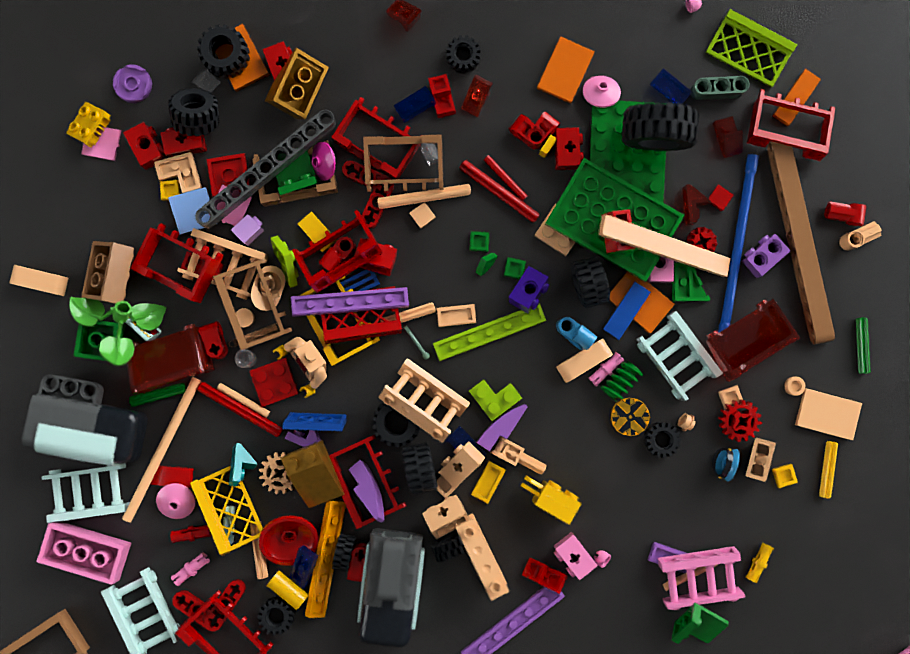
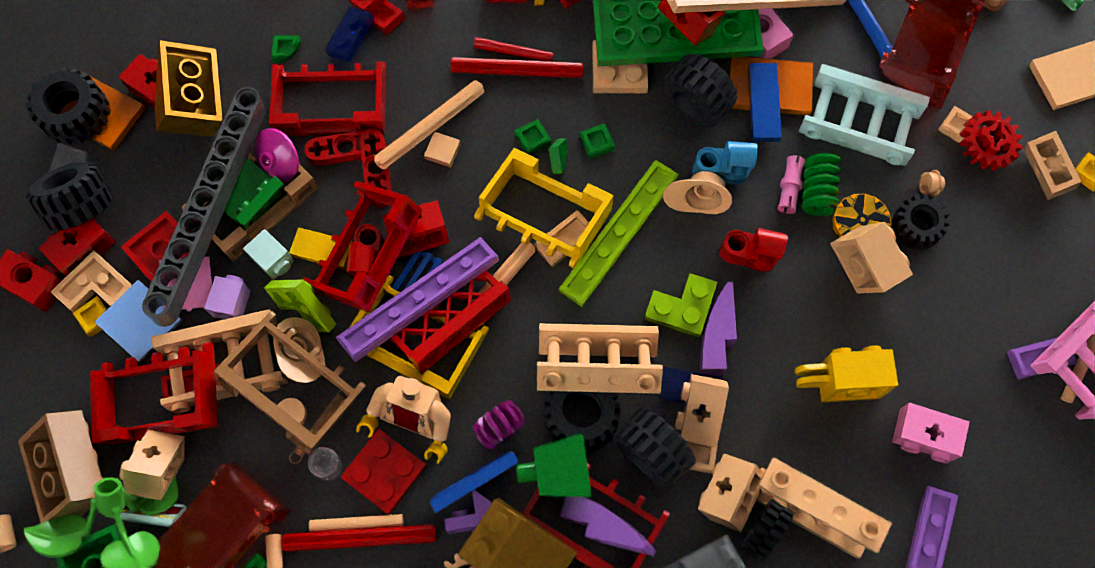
camera: 30 degrees left, 15 degrees down
(155, 302) = (153, 464): none -> light nougat brick
(213, 336) = (263, 465): red piece -> none
(285, 218) = (269, 254): none -> light aqua brick
(348, 400) = (499, 424): none -> magenta gear
(361, 447) = (558, 468): none -> green torso
(372, 87) = (285, 47): none -> green tile
(380, 140) = (391, 51): medium nougat hinge -> none
(425, 355) = (559, 309): sand green hinge -> none
(430, 153) = (403, 76): clear slope -> none
(463, 262) = (527, 167): none -> yellow hinge
(488, 482) = (751, 415): yellow tile -> none
(514, 454) = (757, 357): light nougat connector -> none
(530, 279) = (629, 135): dark purple brick -> none
(544, 575) = (912, 486): red slope -> none
(549, 340) = (701, 194): none -> light nougat piece
(555, 395) = (757, 250): none -> red piece
(584, 360) = (758, 190): light nougat beam -> none
(603, 558) = (966, 412): bright pink hinge -> none
(613, 445) = (872, 258): none -> light nougat brick
(687, 285) = (811, 34): green wing -> none
(725, 463) = (1017, 196): piece -> none
(794, 386) = (1017, 67): light nougat tile -> none

